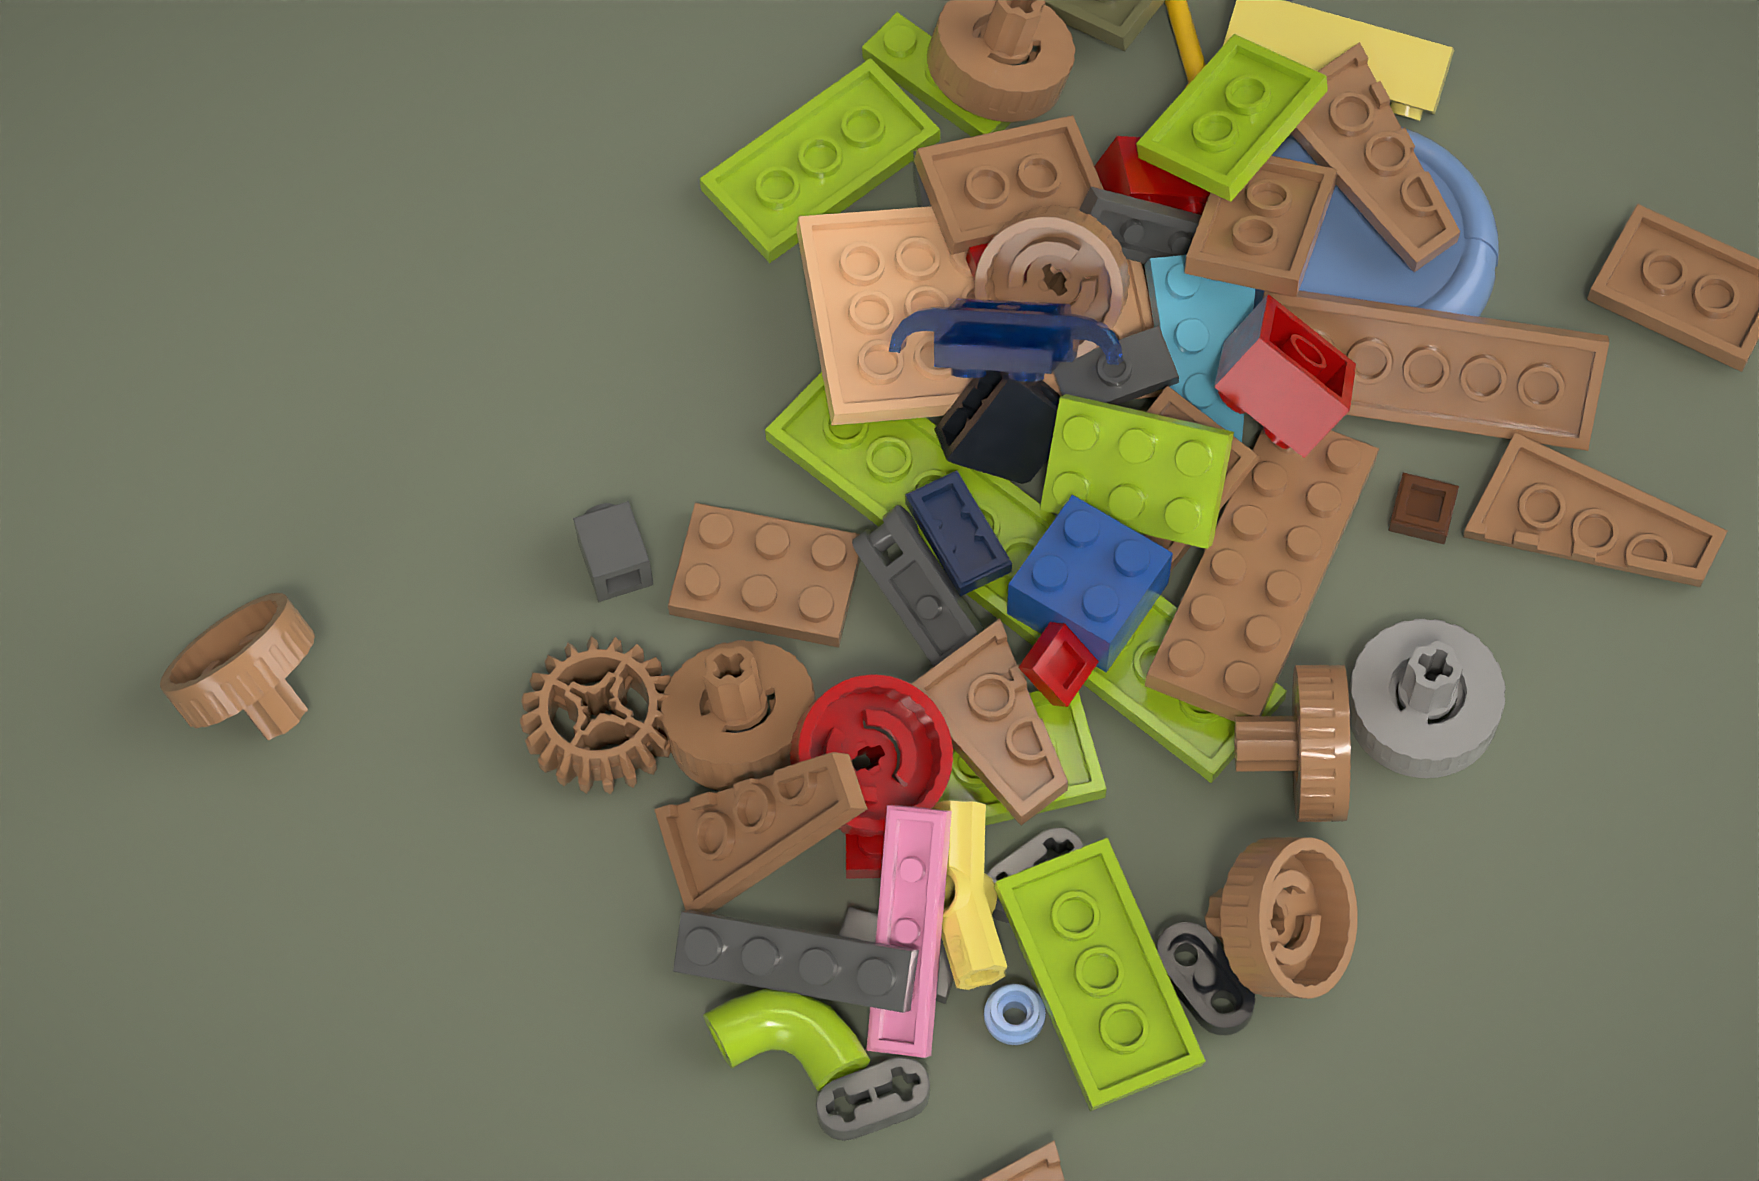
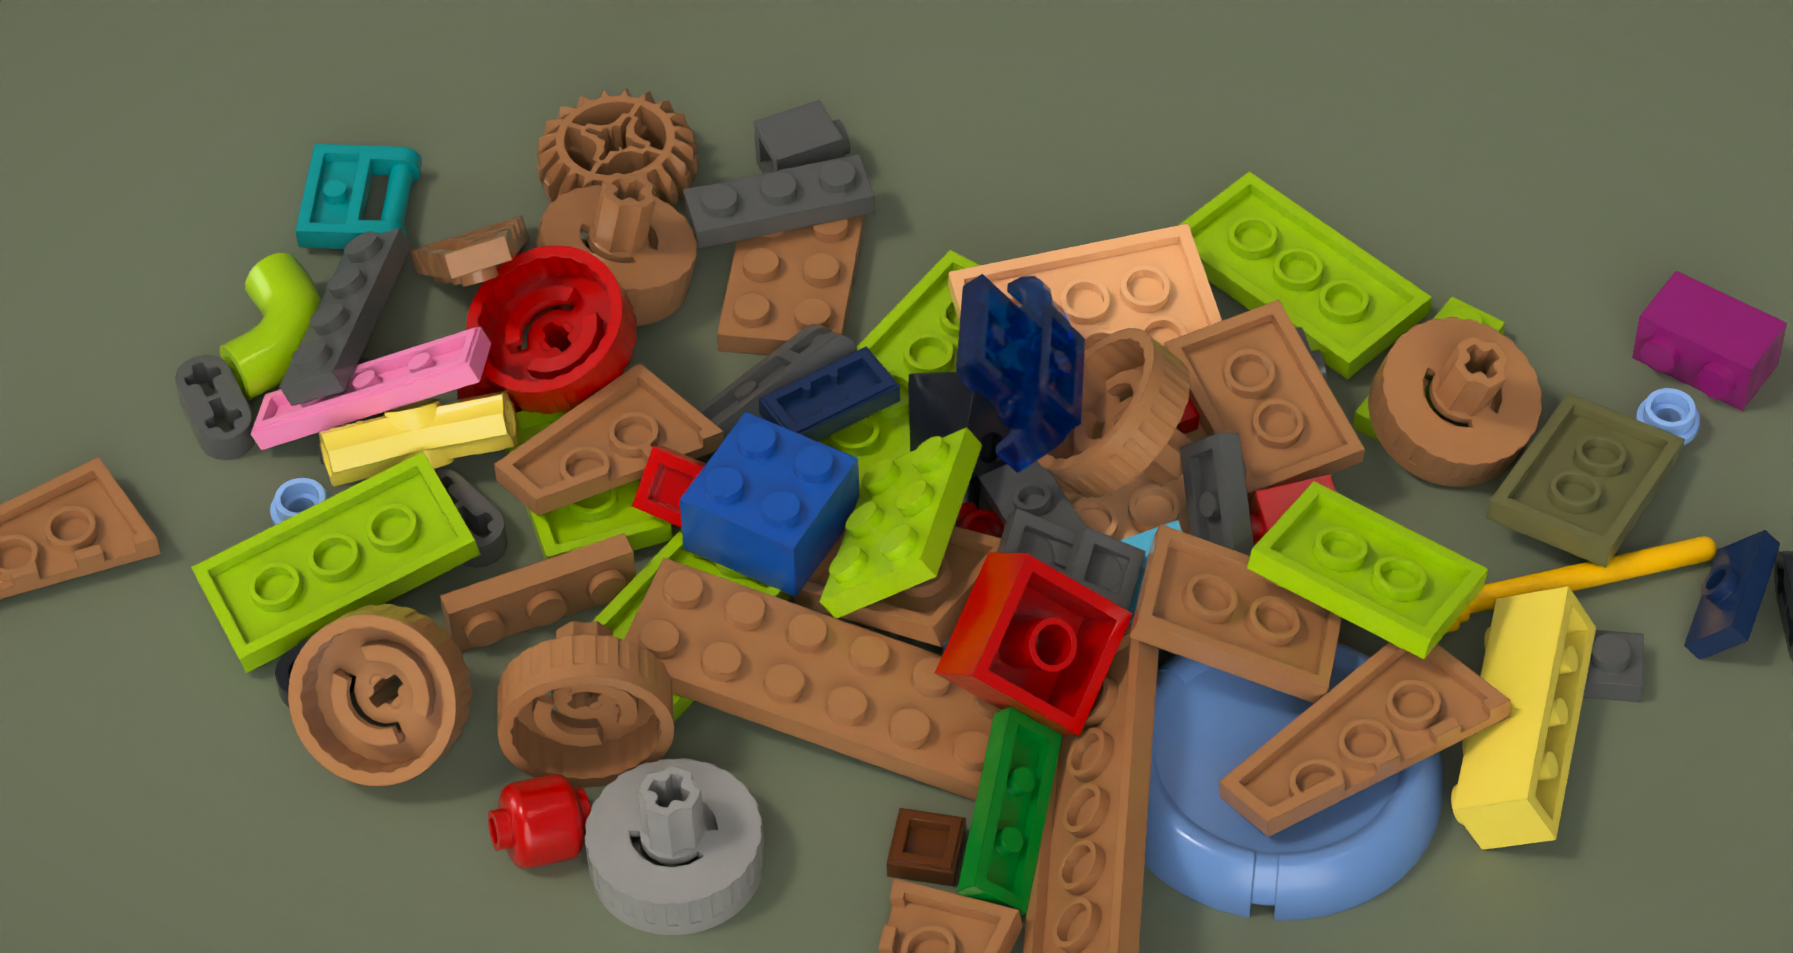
camera: 85 degrees right, 15 degrees down
(606, 979) = (340, 189): none -> teal plate
(693, 565) = (779, 201): none -> dark grey plate
(1147, 798) = (538, 593): none -> medium nougat plate
(1194, 344) = (1085, 556): none -> dark grey slope
(1400, 802) = (540, 821): none -> red head
(1420, 435) = (1010, 811): none -> green plate

